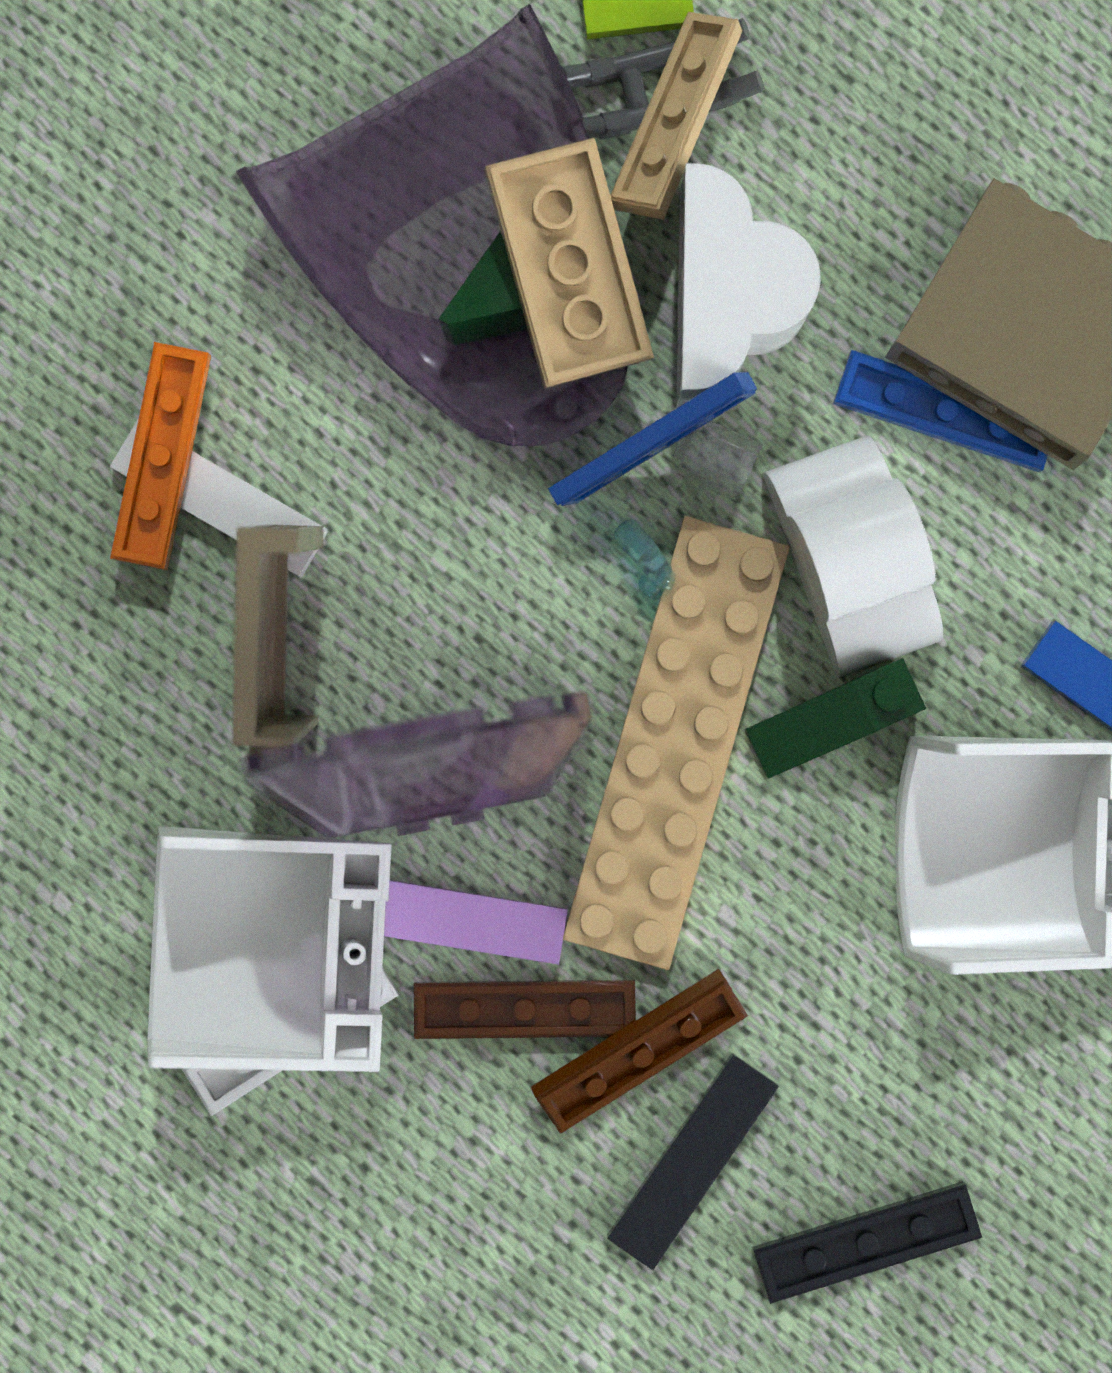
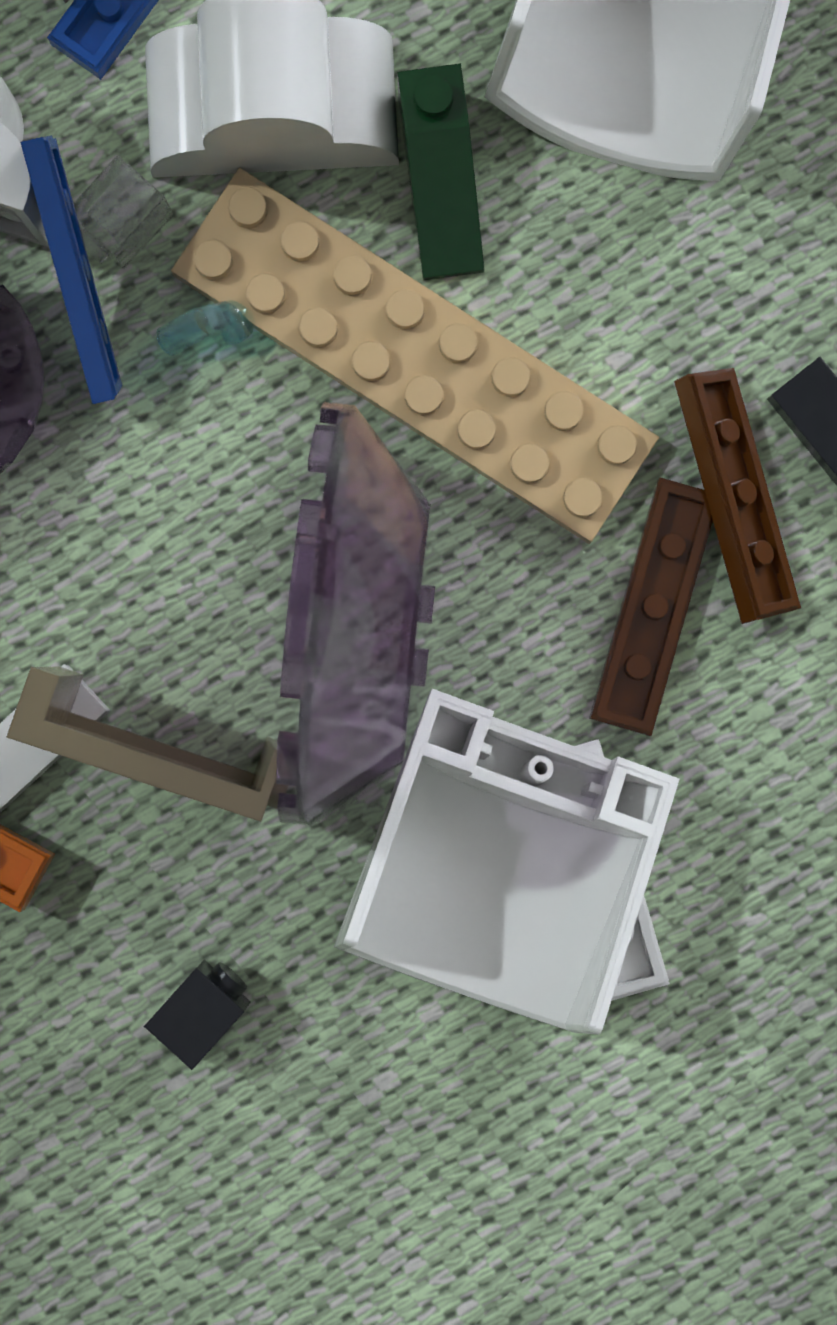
camera: 70 degrees left, 0 degrees up
(72, 731) = (199, 1012): none -> black brick
(474, 922) = (545, 629): lavender tile -> none

